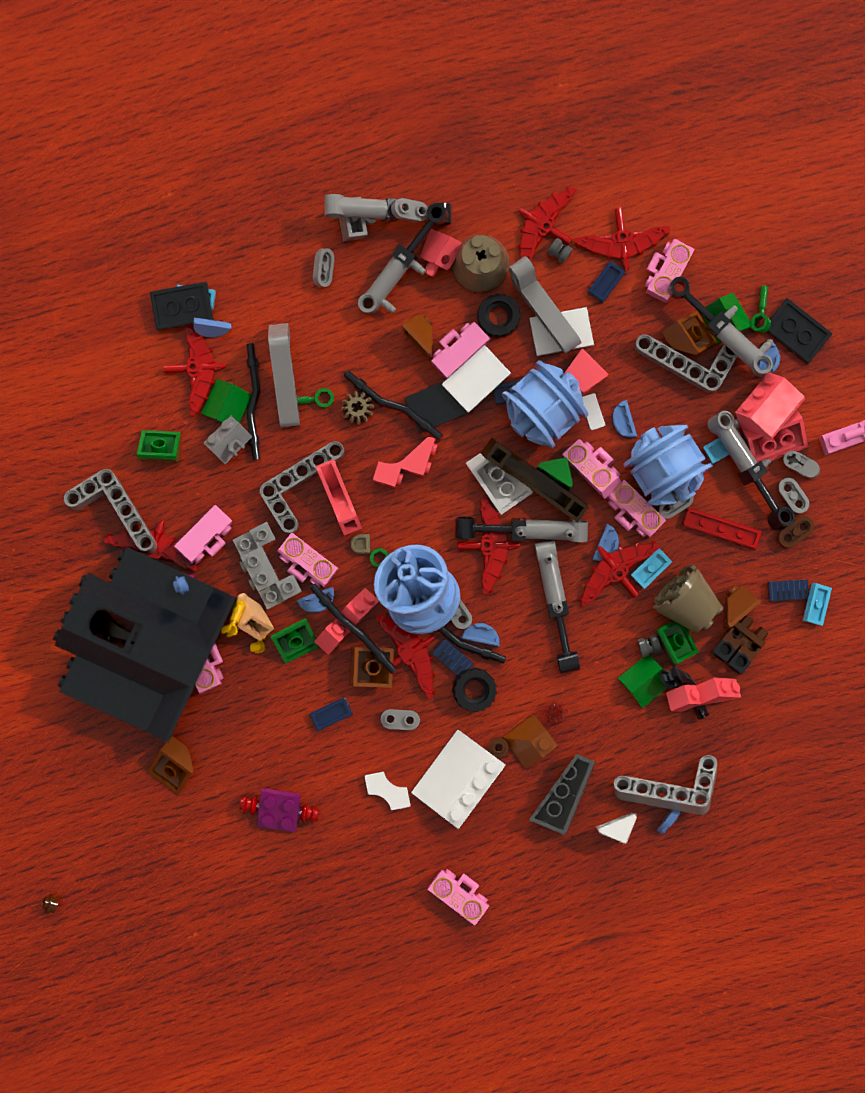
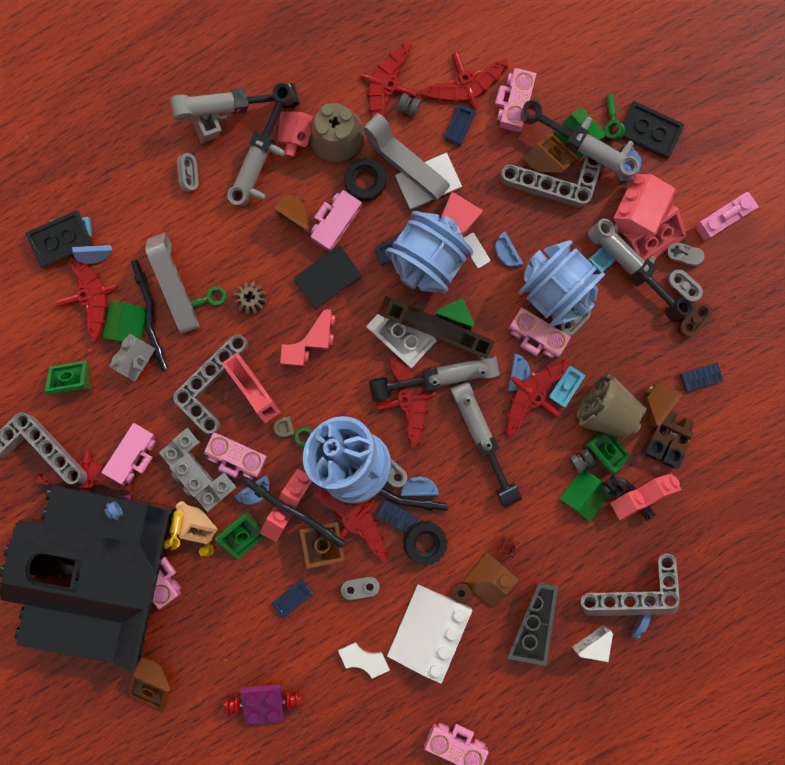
camera: 15 degrees left, 0 degrees up
(361, 385) = (318, 299): black bar -> none
(411, 210) = (257, 97): light grey plate -> none
(476, 379) = (357, 244): white tile -> none
(586, 464) = (494, 308): bright pink piece -> none
(721, 528) = (624, 332): red tile -> none
(817, 604) = (732, 383): medium azure plate -> none

